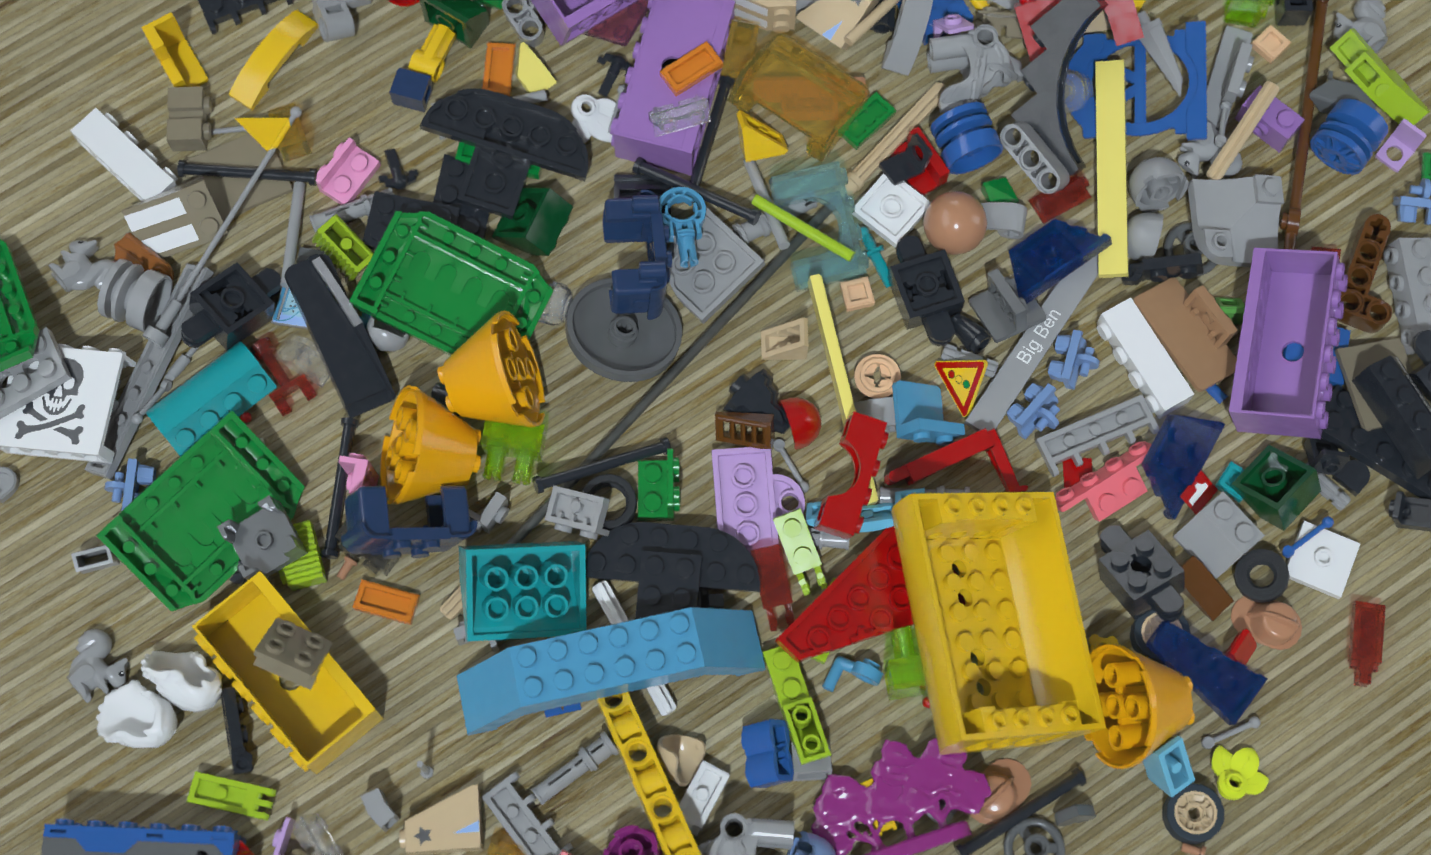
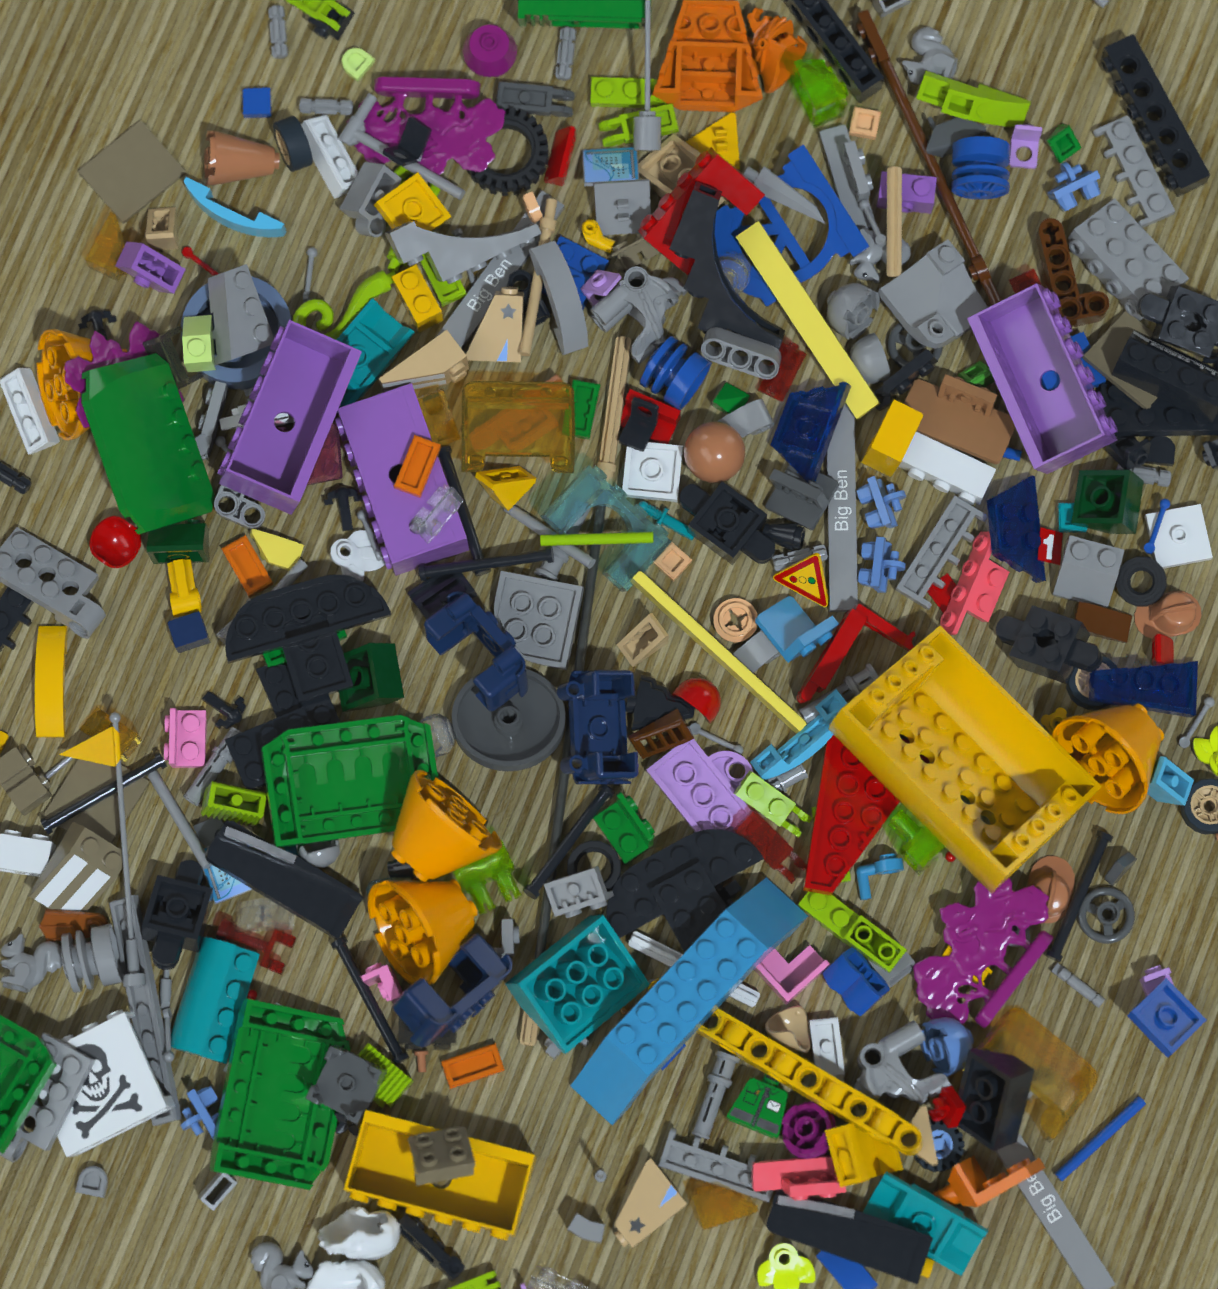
camera: 30 degrees left, 5 degrees up
(606, 806) = (760, 1106): none -> green torso
(684, 228) = (506, 597): dark azure pin -> none
(695, 384) = (599, 727): none -> dark blue container
(716, 714) = (791, 978): none -> bright pink panel
(862, 440) = (765, 684): red arch -> none
(1118, 308) = (892, 438): none -> yellow panel

